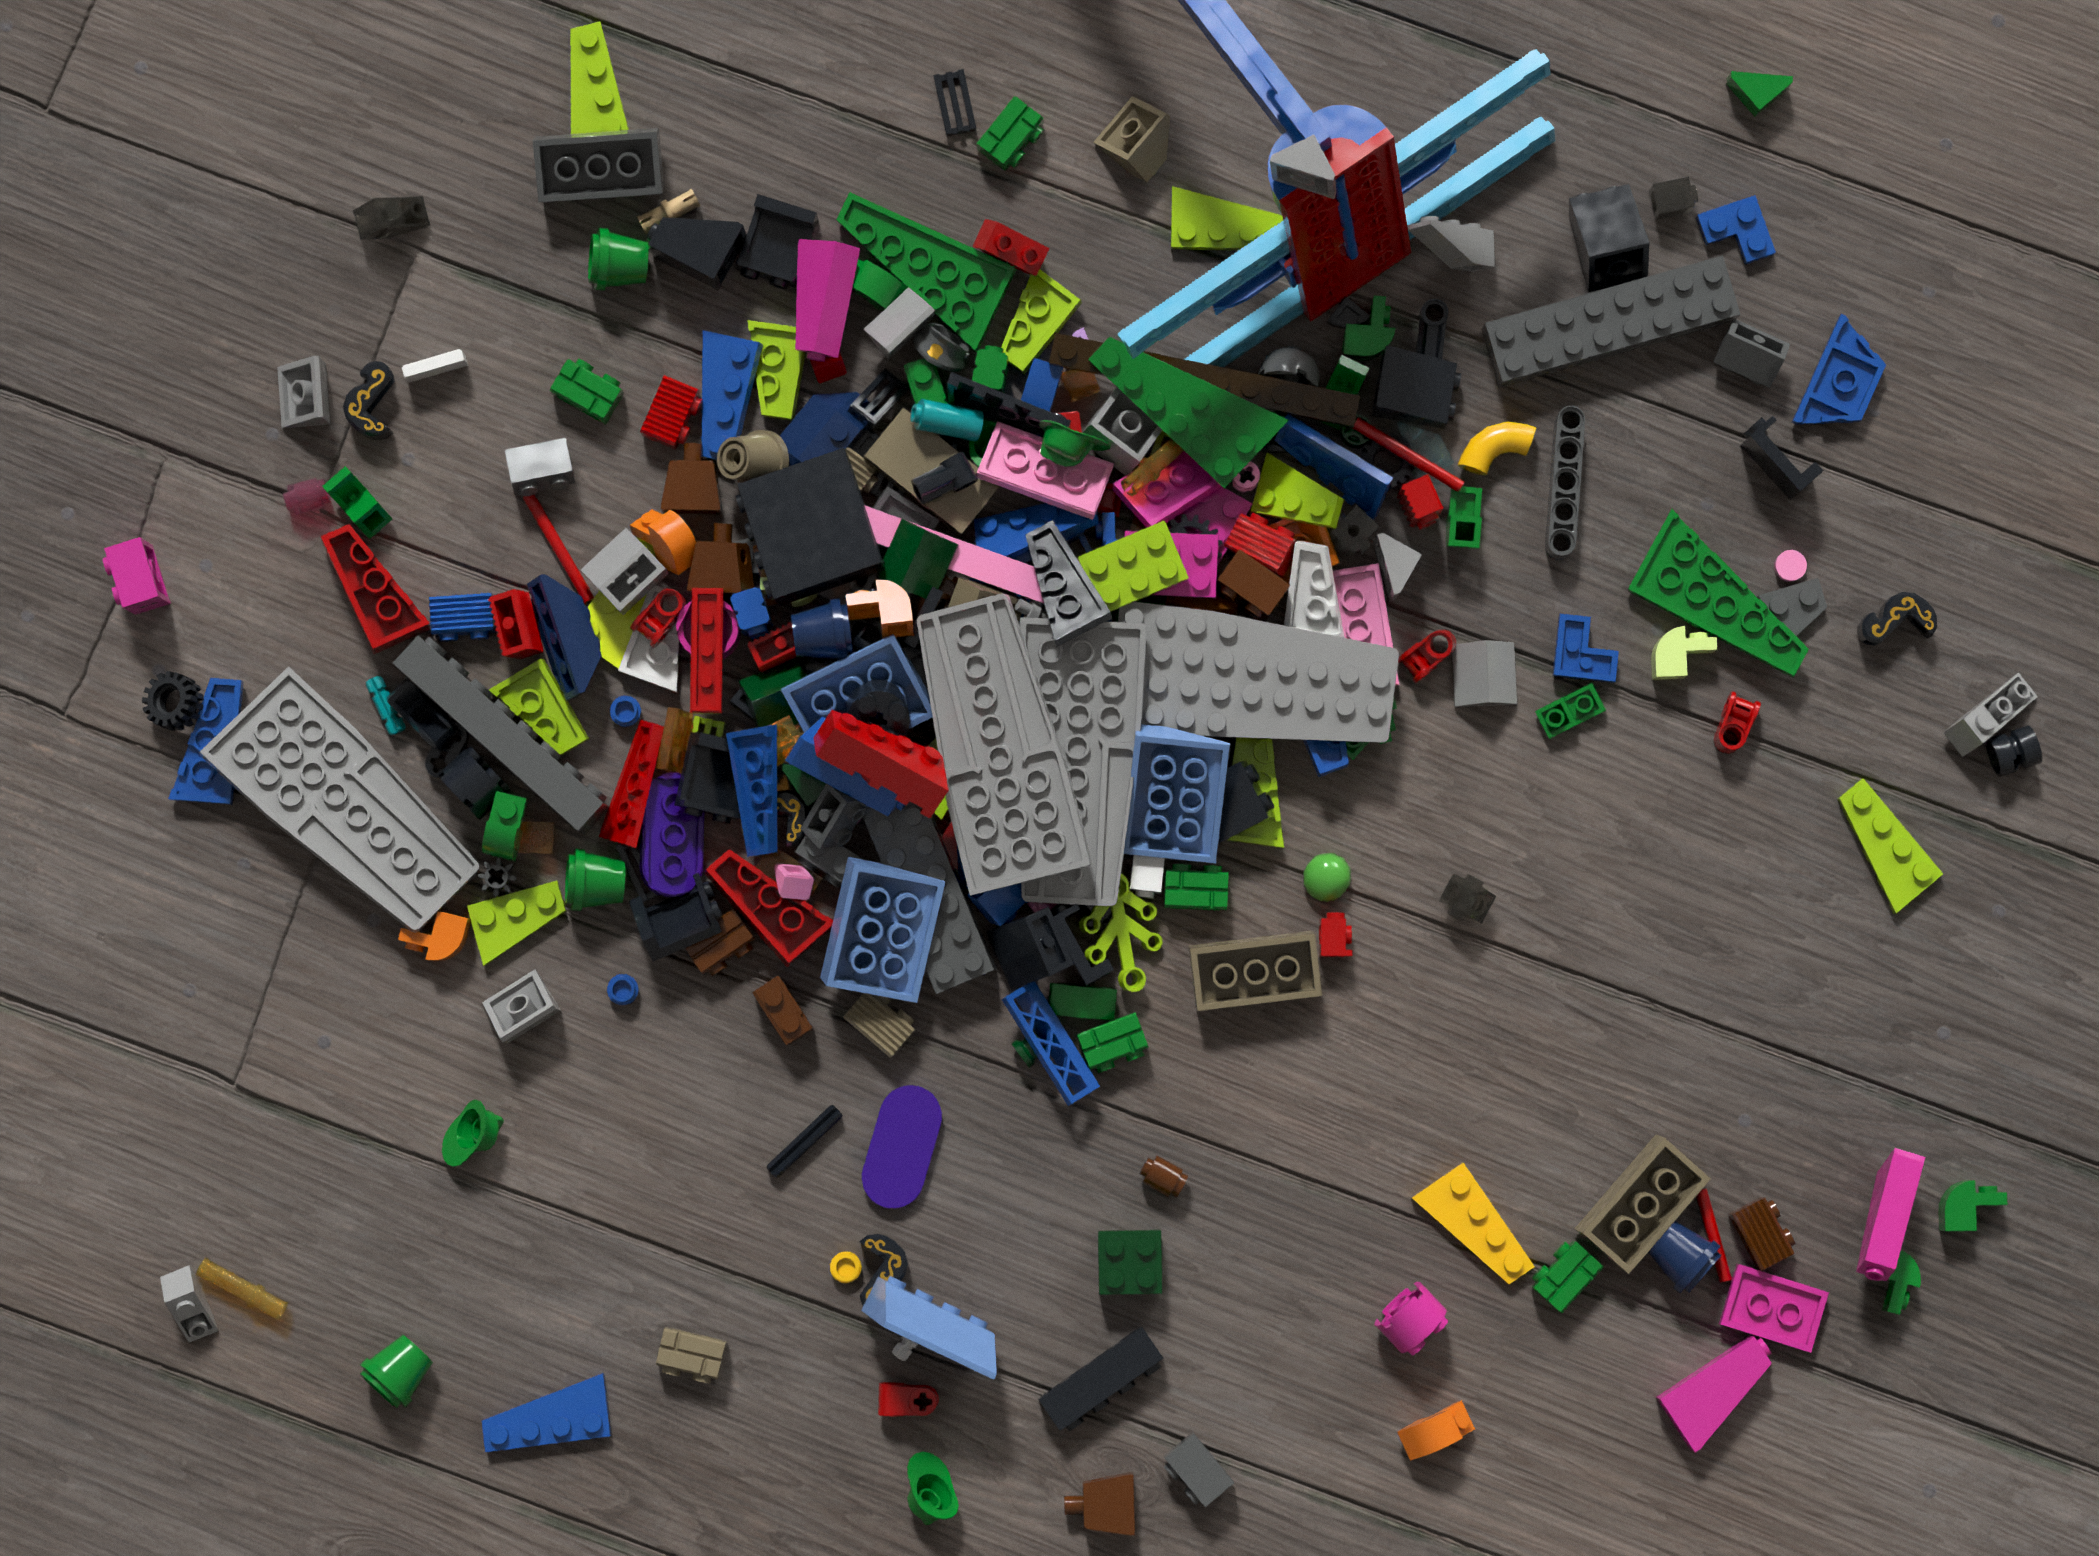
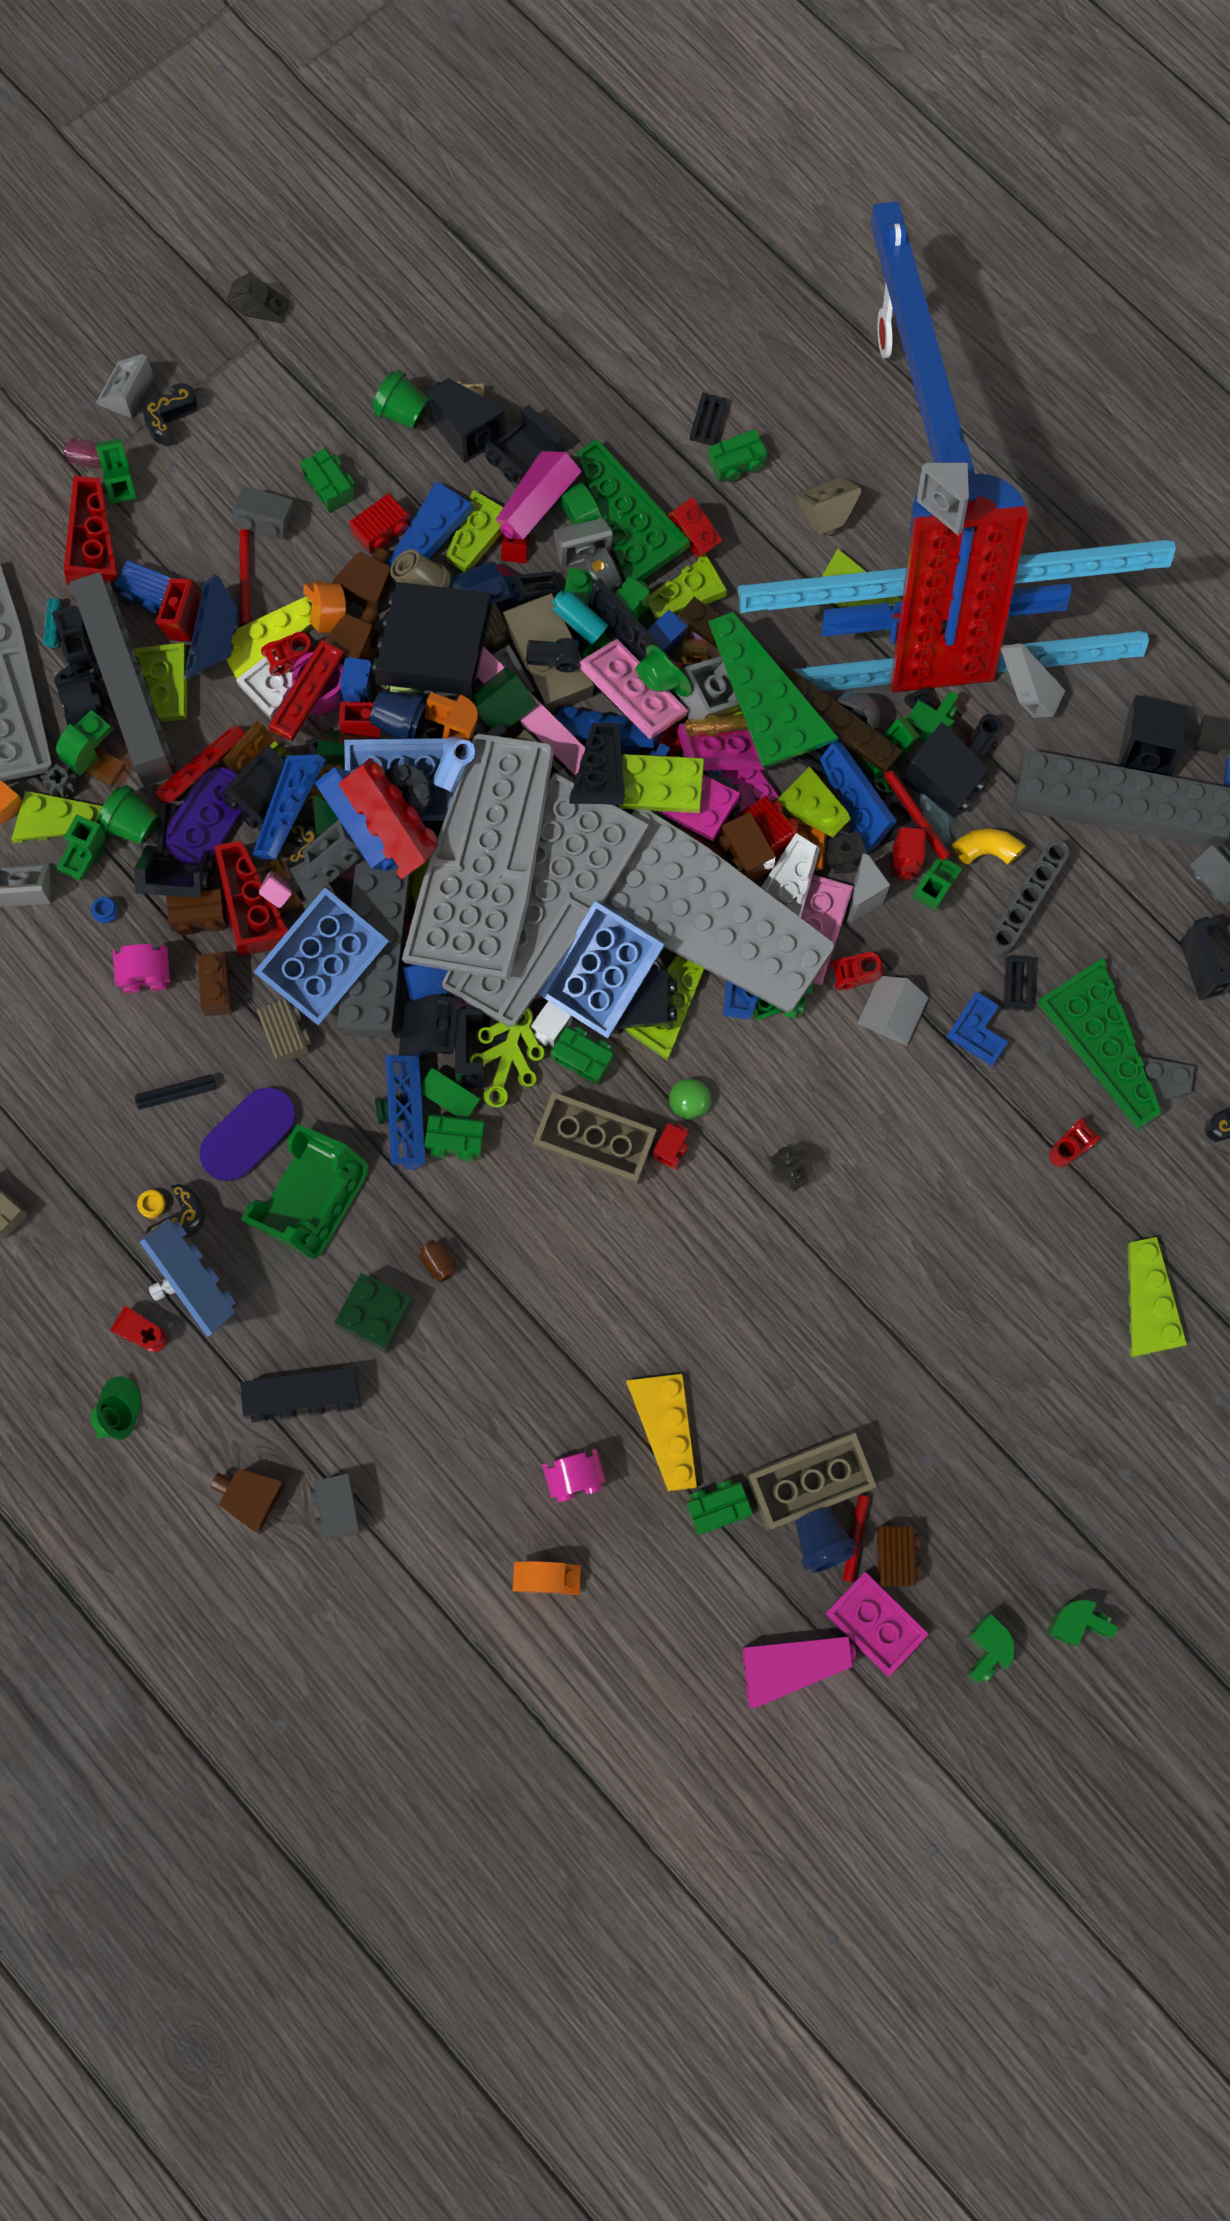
camera: 25 degrees right, 10 degrees down
(434, 365) = (228, 411): white tile -> none
(565, 940) = (84, 847): none -> green brick
(594, 89) = (450, 294): lime wing -> none
(598, 165) = (424, 331): dark grey brick -> none
(624, 571) = (280, 611): light grey slope -> none
(625, 711) = (225, 713): blue plate -> none
(701, 1034) = (141, 967): none -> dark pink brick
(911, 662) = (452, 767): none -> light blue piece
(998, 1177) = (310, 1193): none -> green windscreen
(1248, 485) = (781, 781): bright pink bush -> none
(1570, 710) = (947, 1070): green slope -> none
(1598, 581) = (1016, 1005): none -> black tile
(1671, 652) = (1054, 1061): yellowish green brick -> none
(1790, 565) = (1176, 1048): bright pink tile -> none
(1889, 1214) = (1011, 1591): dark pink slope -> none

